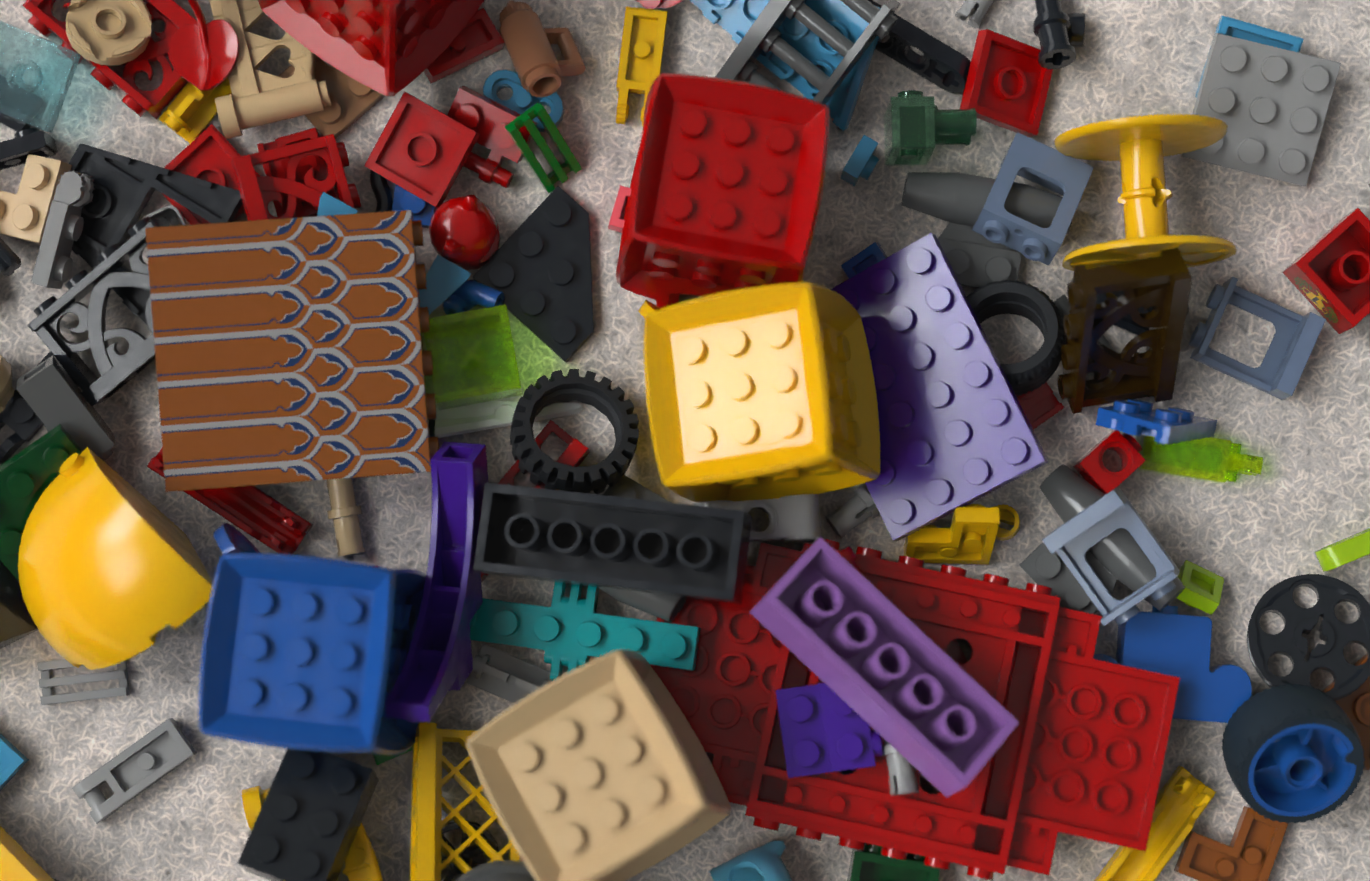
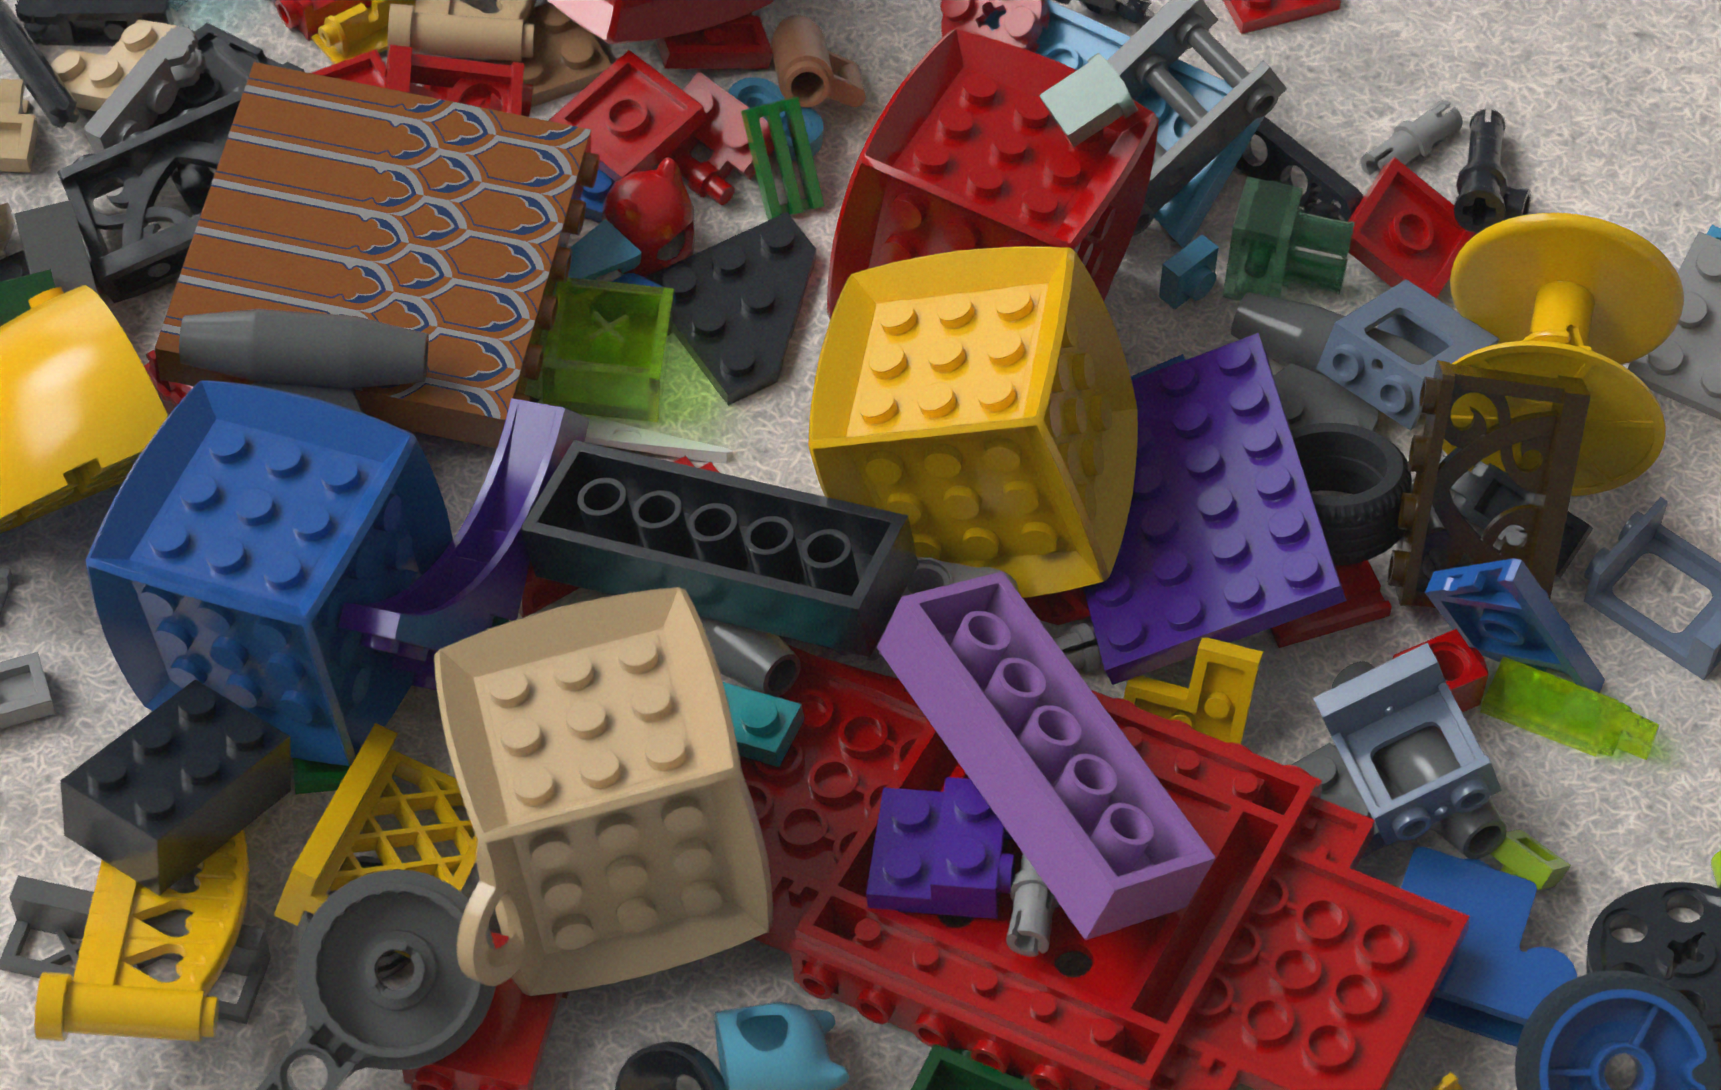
camera: 15 degrees right, 30 degrees down
(279, 487) = (305, 351): none -> dark grey plate
(587, 391) = (717, 420): black tyre -> none
(781, 125) = (1088, 100): none -> tile
(1010, 516) = (1269, 715): yellow hinge -> none

